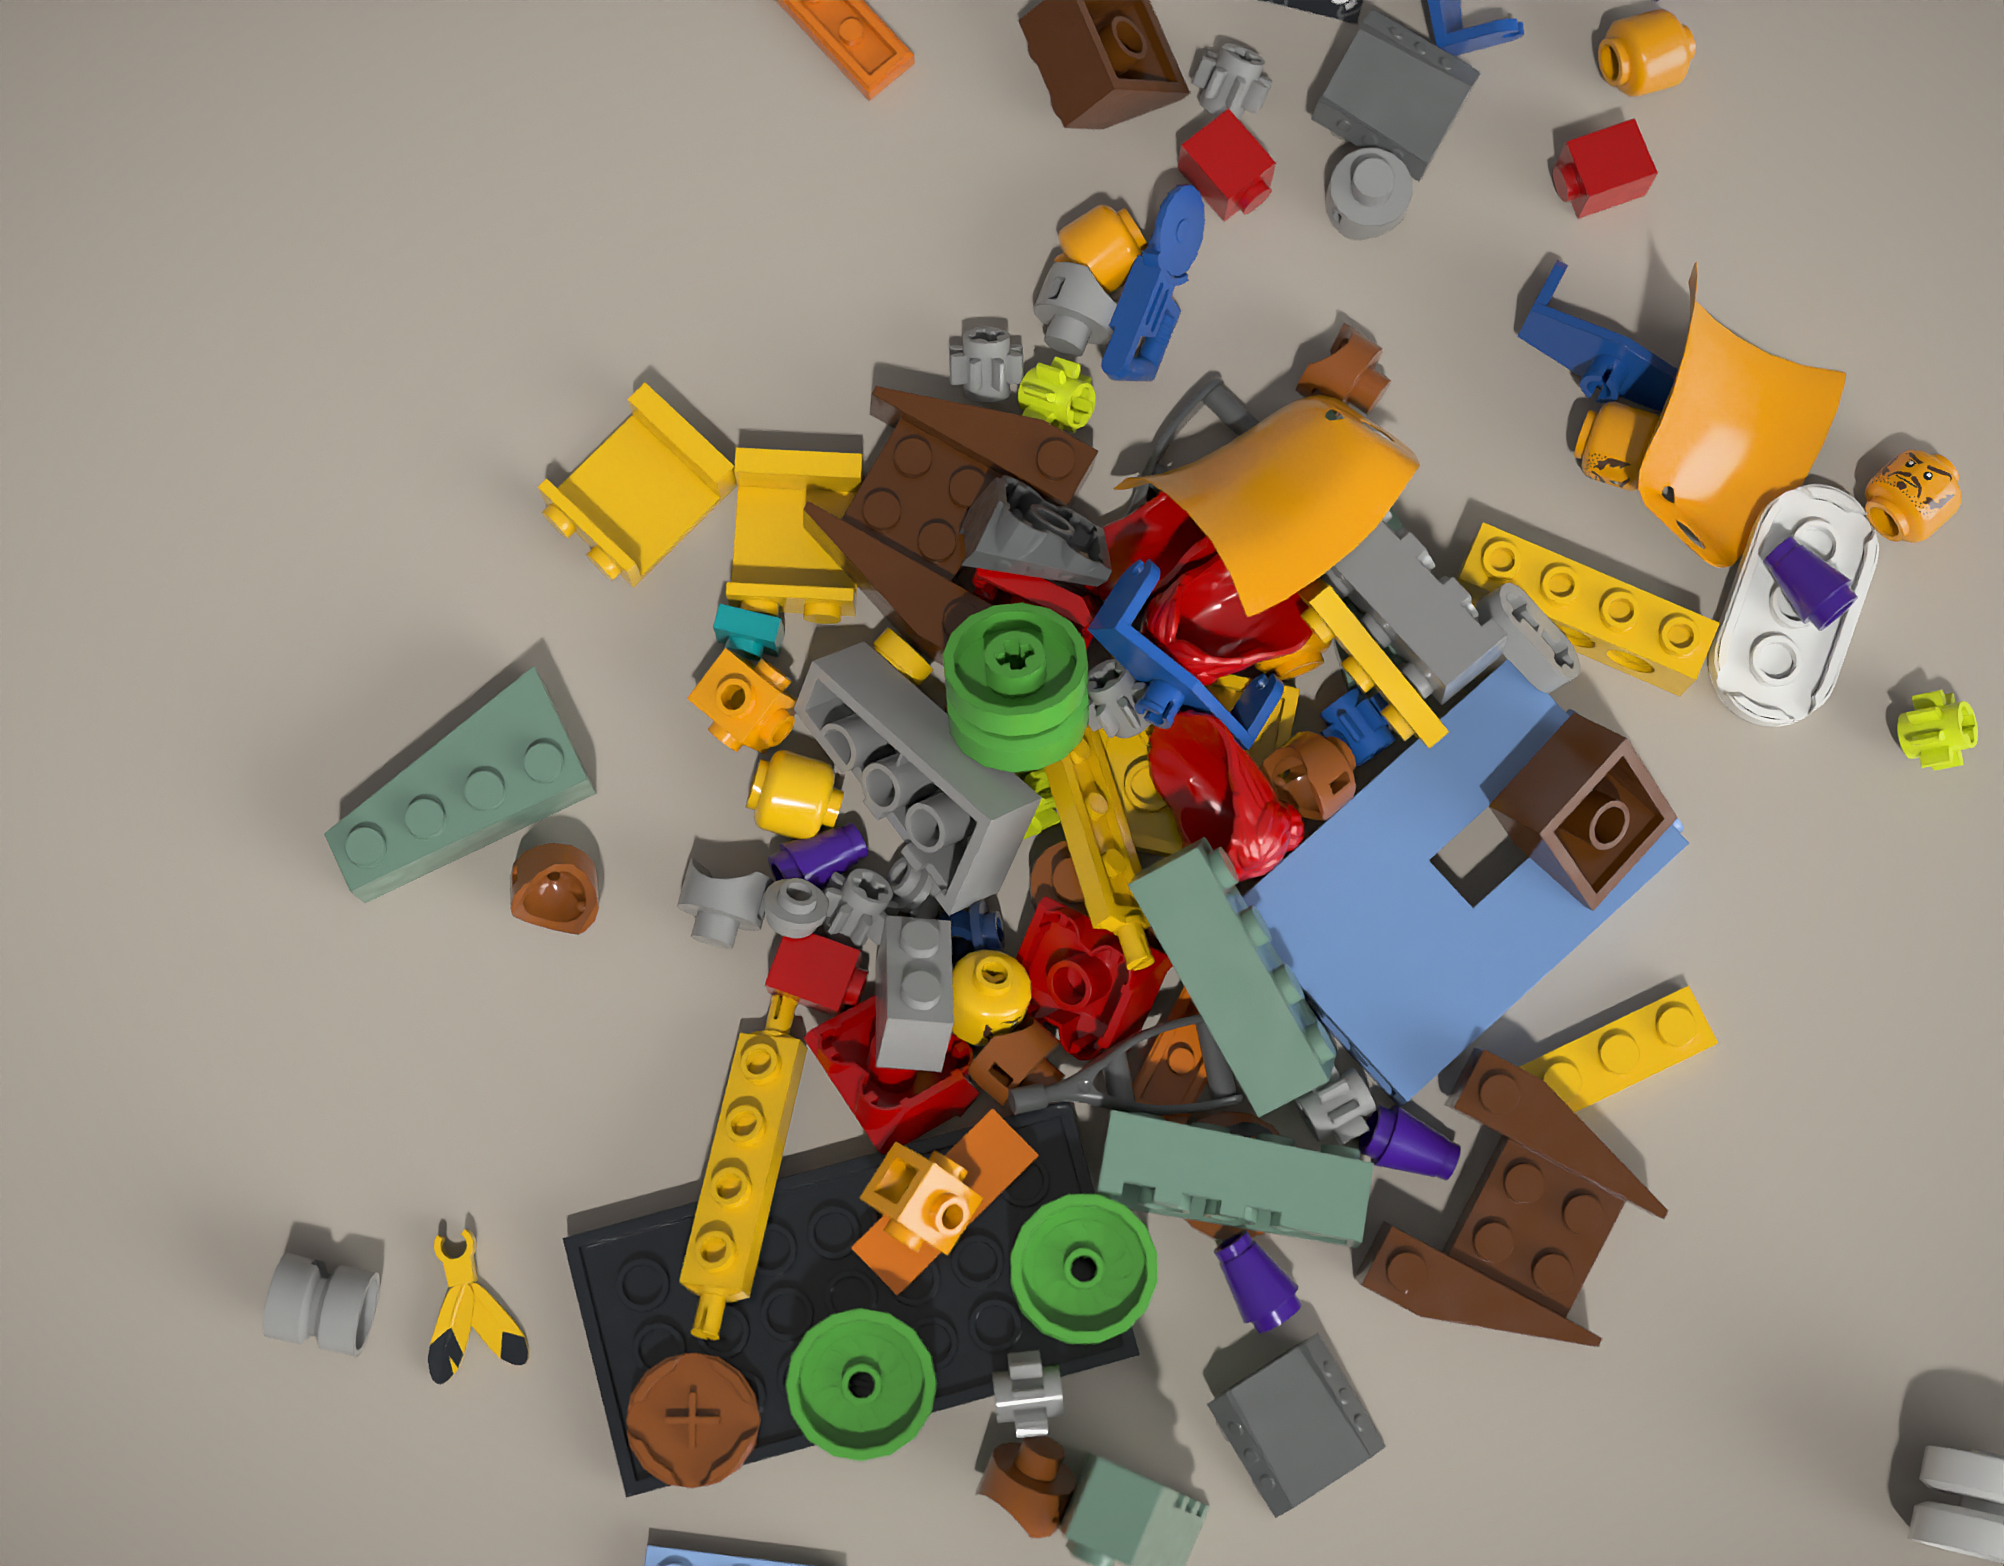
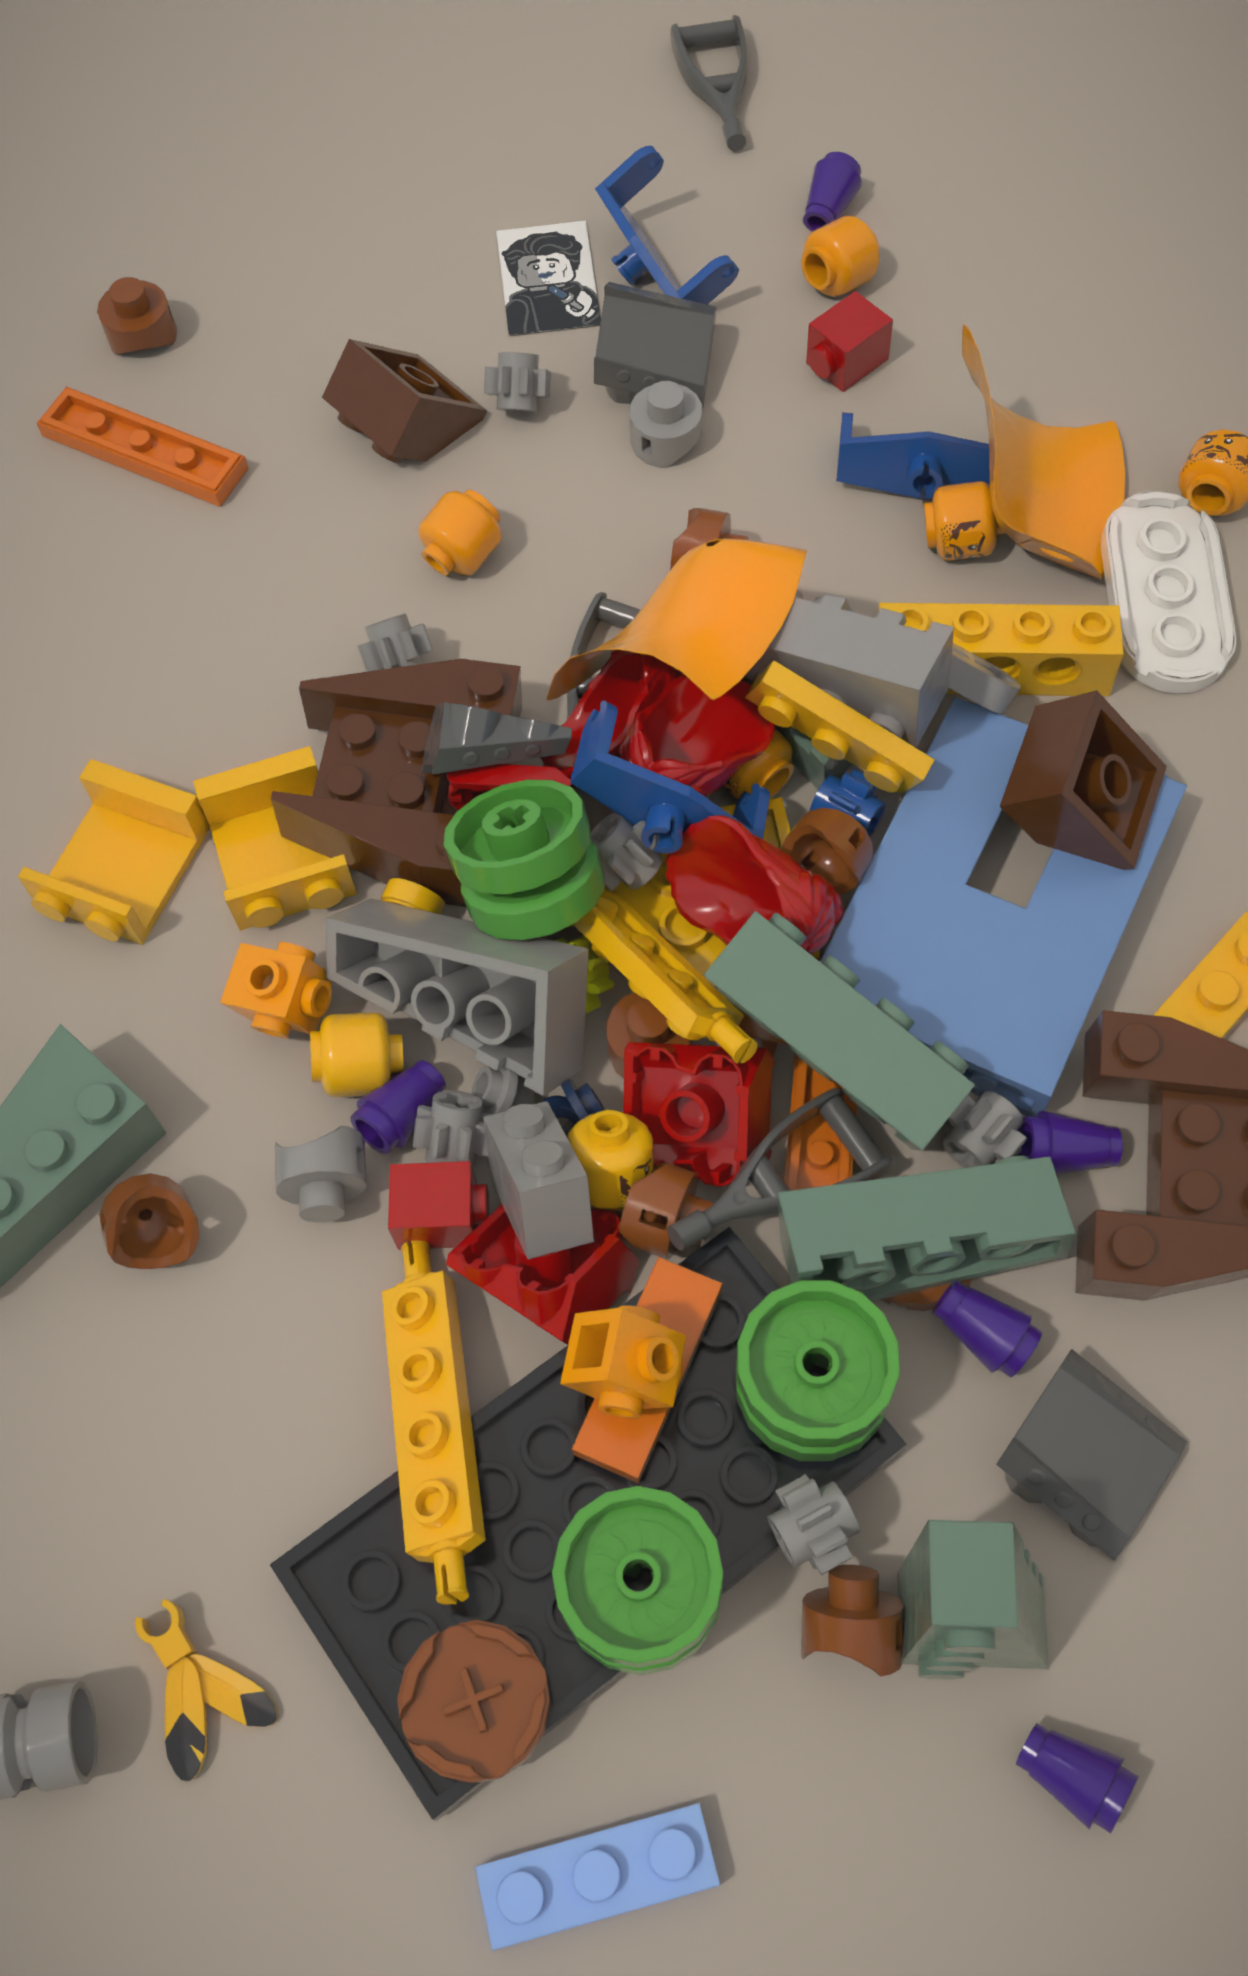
camera: 15 degrees left, 15 degrees down
(748, 632) = (259, 926): teal plate -> none
(795, 907) = (391, 1144): light grey plate -> none
(1058, 394) = (467, 639): neon yellow gear -> none
(1075, 313) = (459, 580): light grey piece -> none
(1146, 298) = (512, 541): blue piece -> none
(1227, 166) = (539, 441): red brick -> none
(1810, 584) = (1176, 556): dark purple cone -> none

